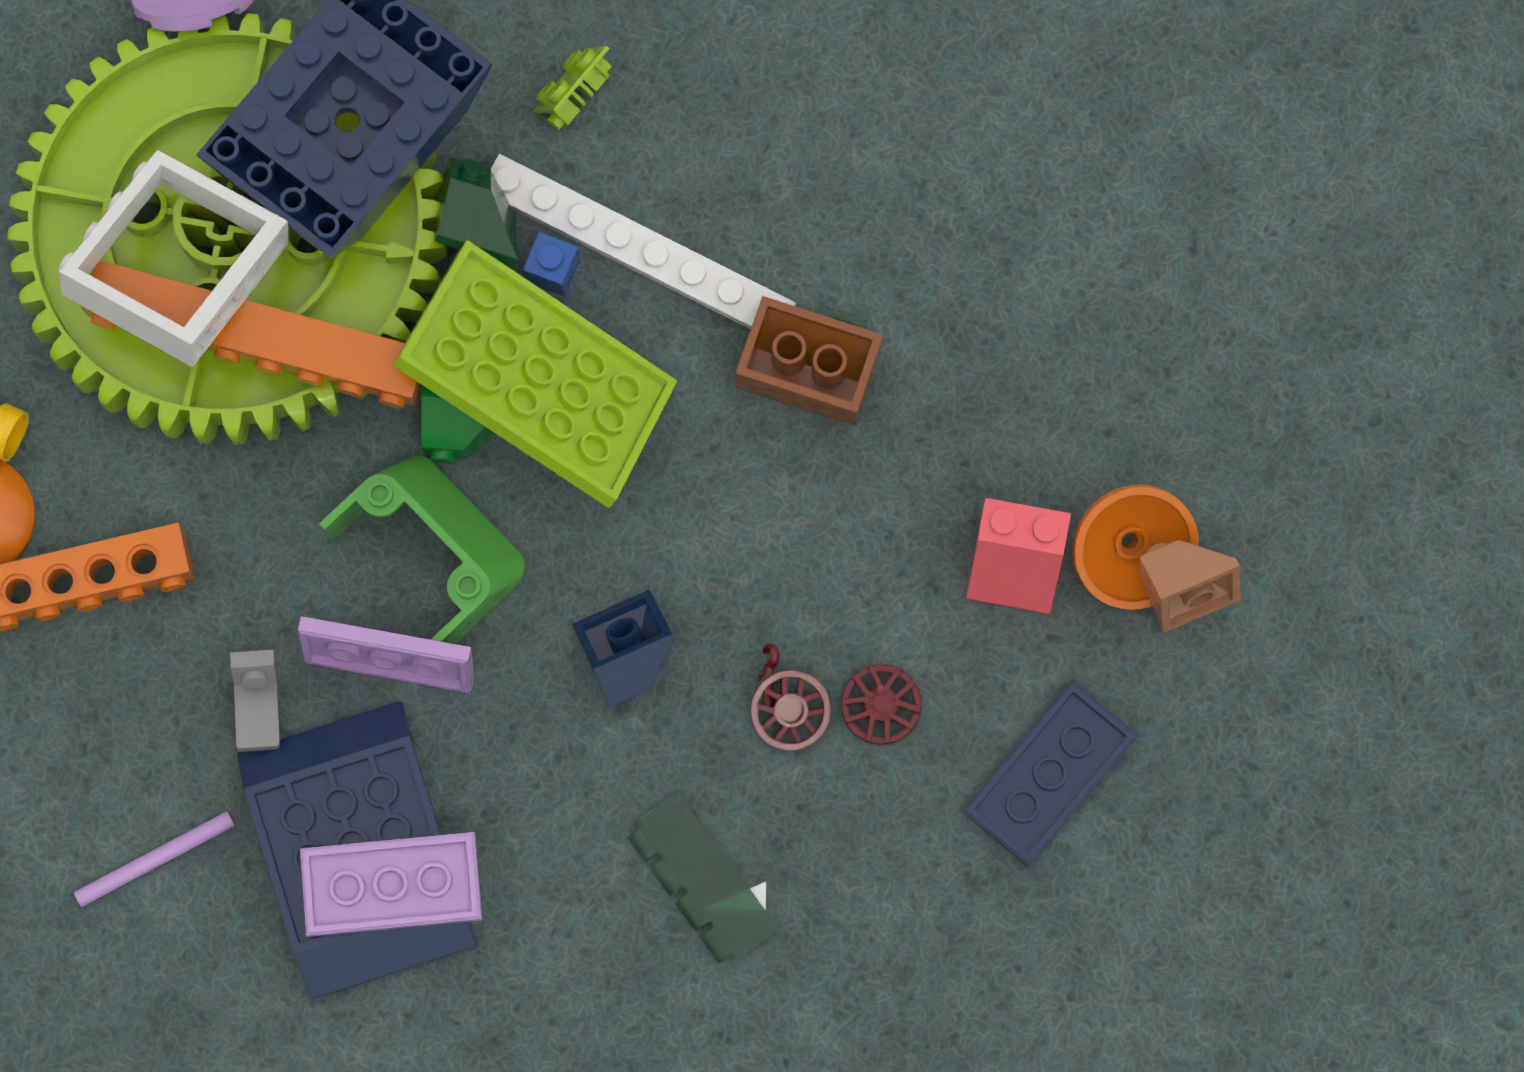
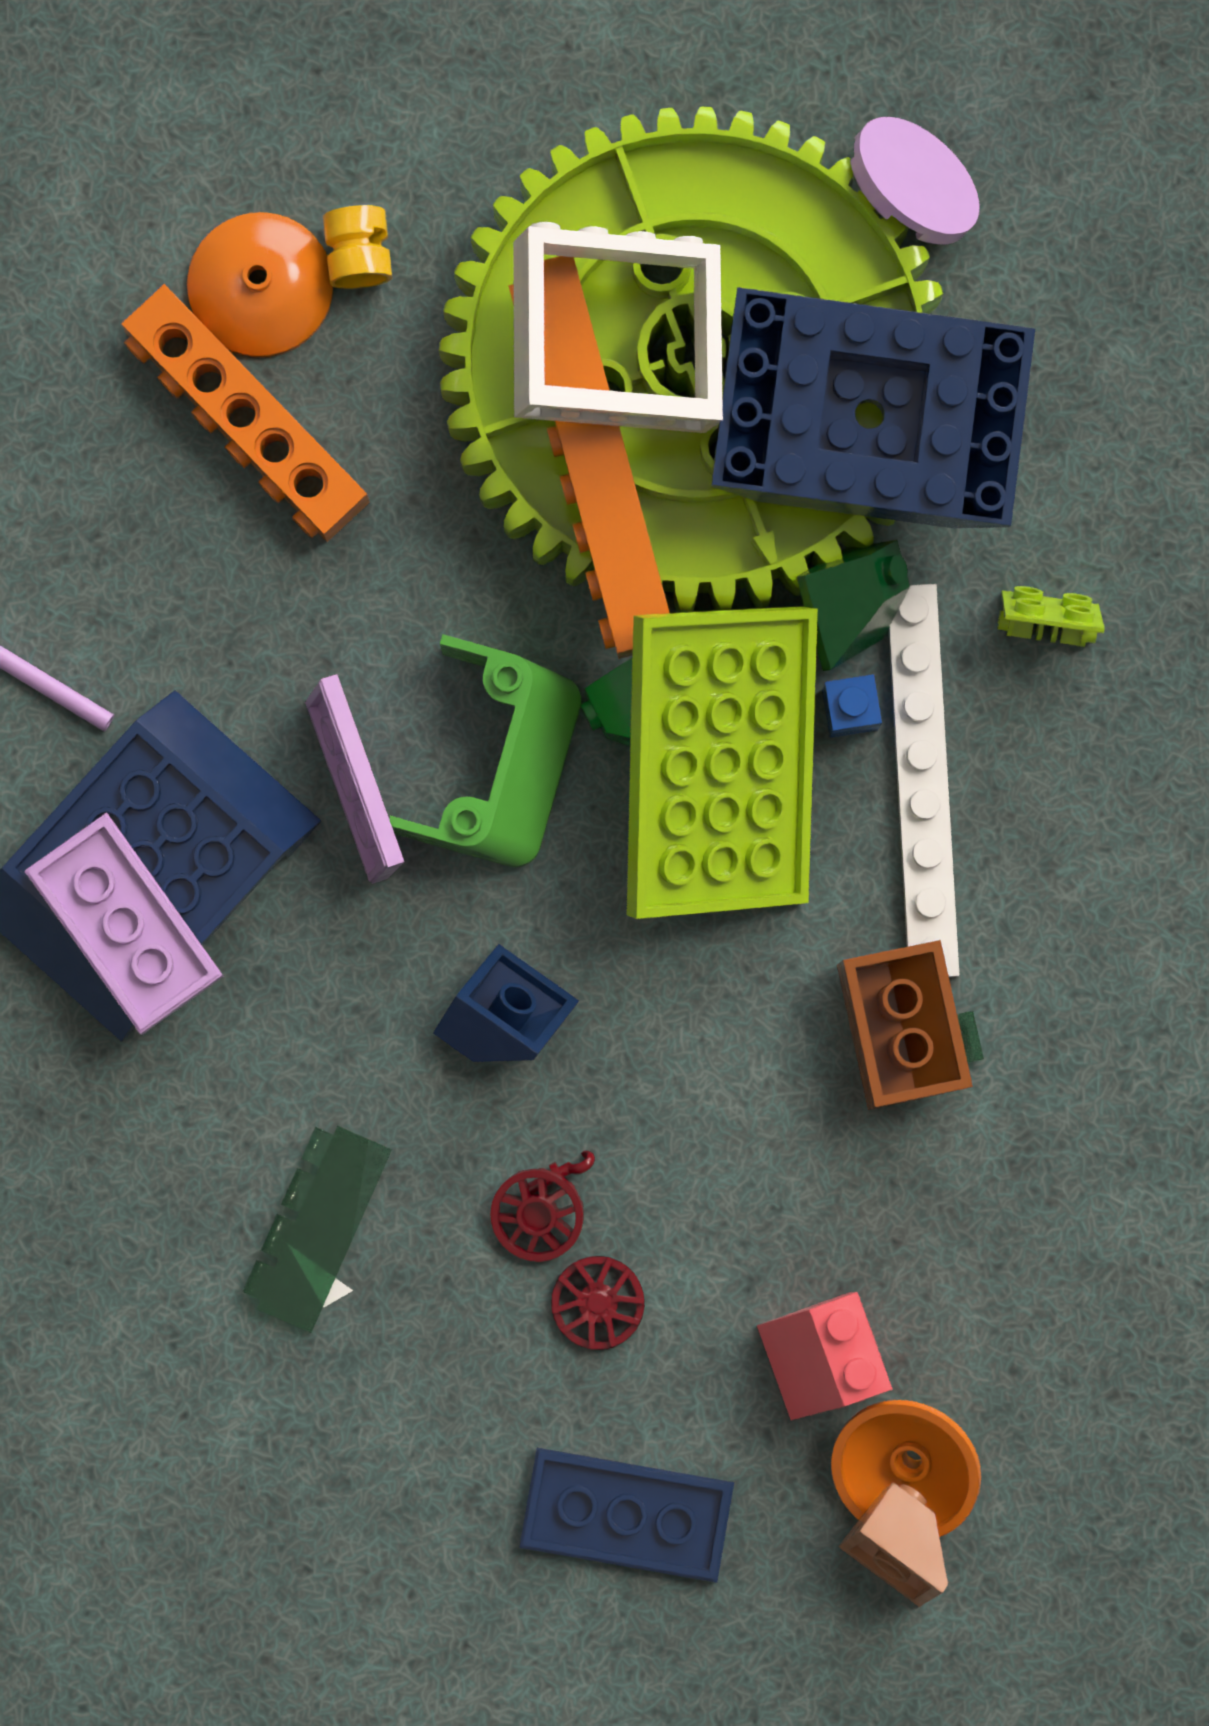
camera: 55 degrees right, 5 degrees up
(255, 700) = (234, 678): light grey bracket -> none

